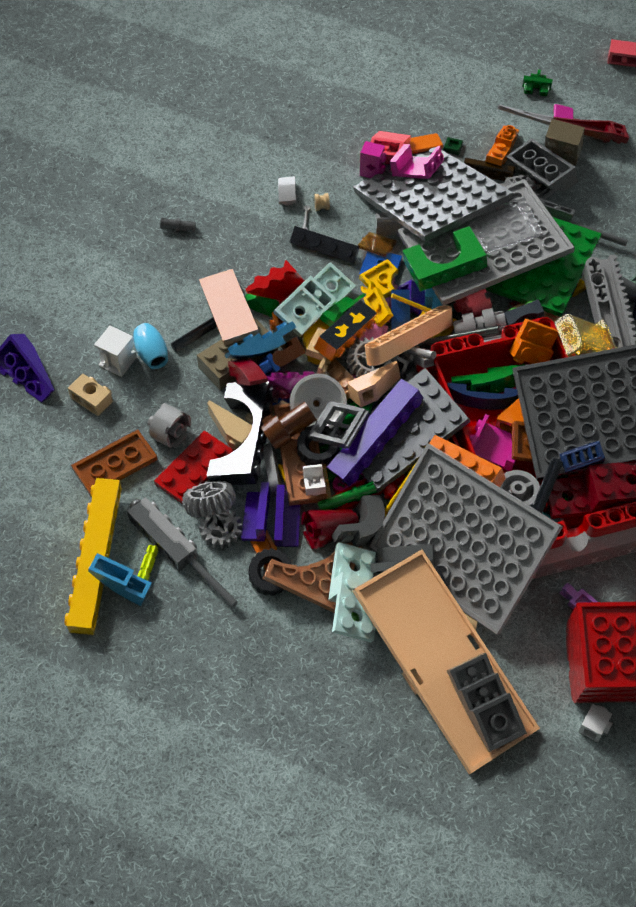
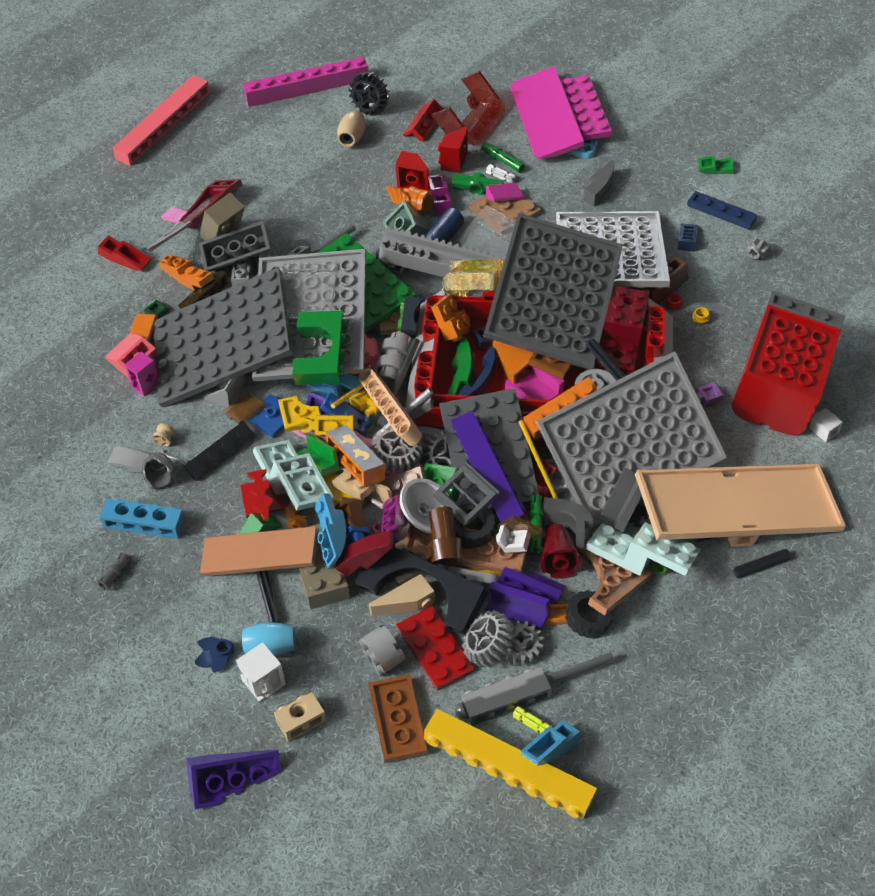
camera: 65 degrees left, 5 degrees down
(126, 319) = (212, 653): none -> dark blue plate
(233, 221) = (142, 518): none -> dark azure brick
(283, 211) = (158, 470): none -> dark grey hair
(373, 384) = (433, 460): light nougat slope -> none
(394, 706) = (761, 563): none -> black axle
(406, 165) = (178, 337): dark pink panel -> none
(486, 702) = (790, 486): dark grey slope -> none
(499, 96) = (123, 254): none -> red slope
(537, 81) = (122, 218): green hips -> none
(580, 450) = (598, 311): dark blue slope -> none

